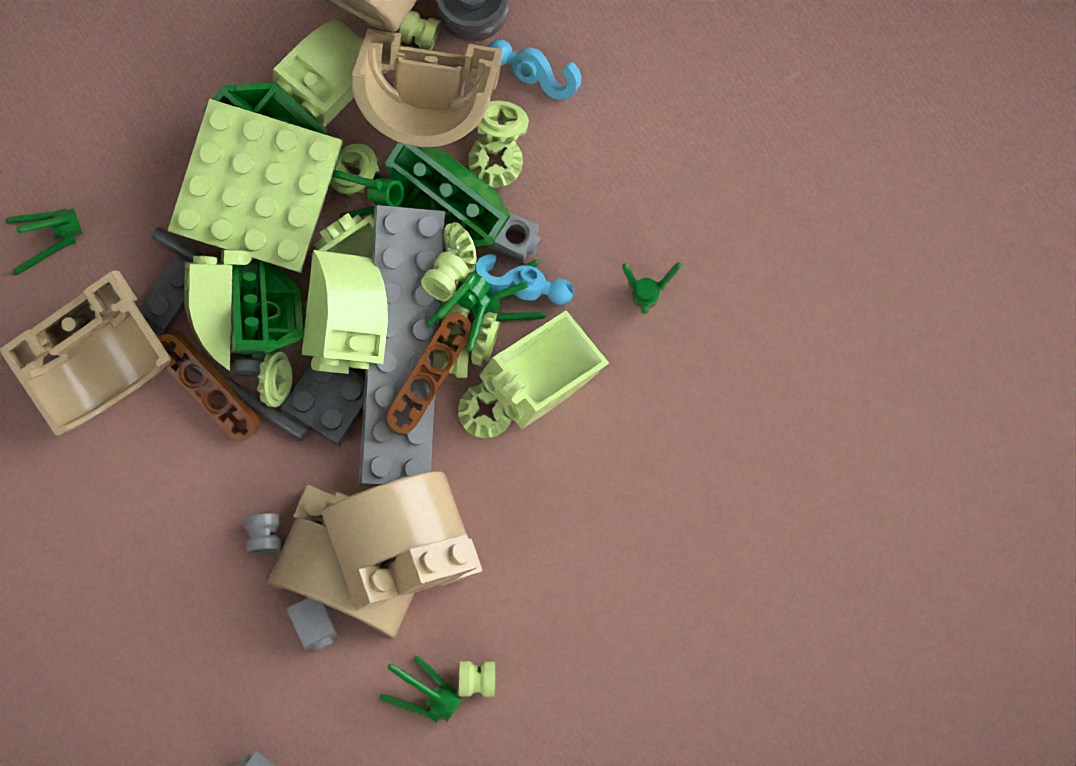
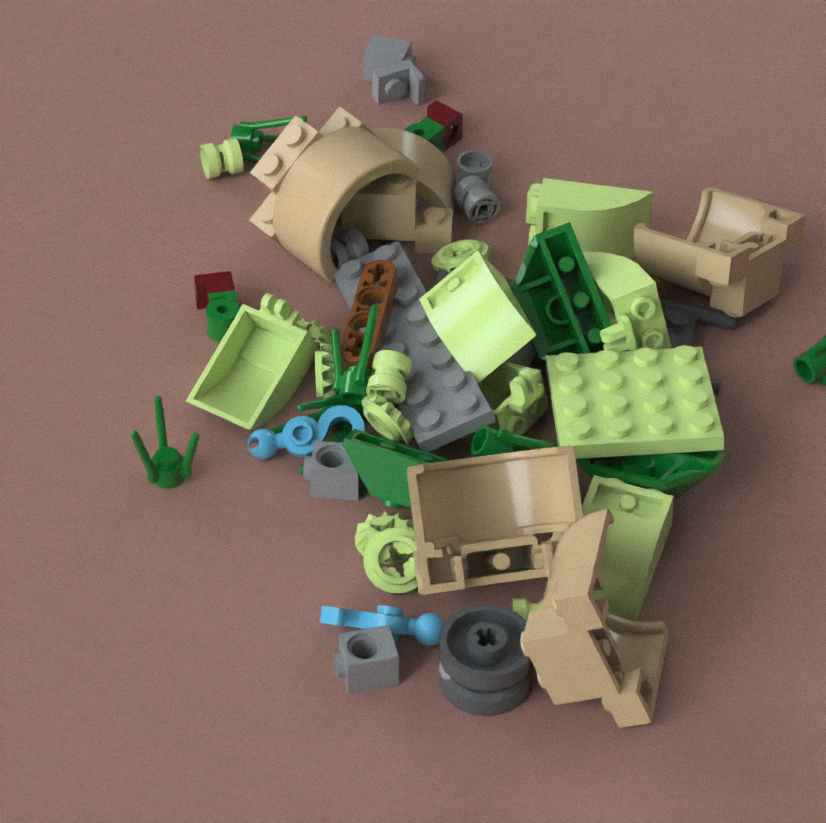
camera: 160 degrees right, 35 degrees down
(191, 446) = (598, 213): none -> yellowish green piece
(245, 566) = (475, 163): none -> light grey wheel
(270, 740) = (397, 82): none -> light grey bracket
(272, 642) = (437, 125): none -> leg
(323, 466) = (456, 253): none -> yellowish green gear
(544, 458) = (218, 296): none -> leg
(552, 23) = (367, 659): none -> light grey brick

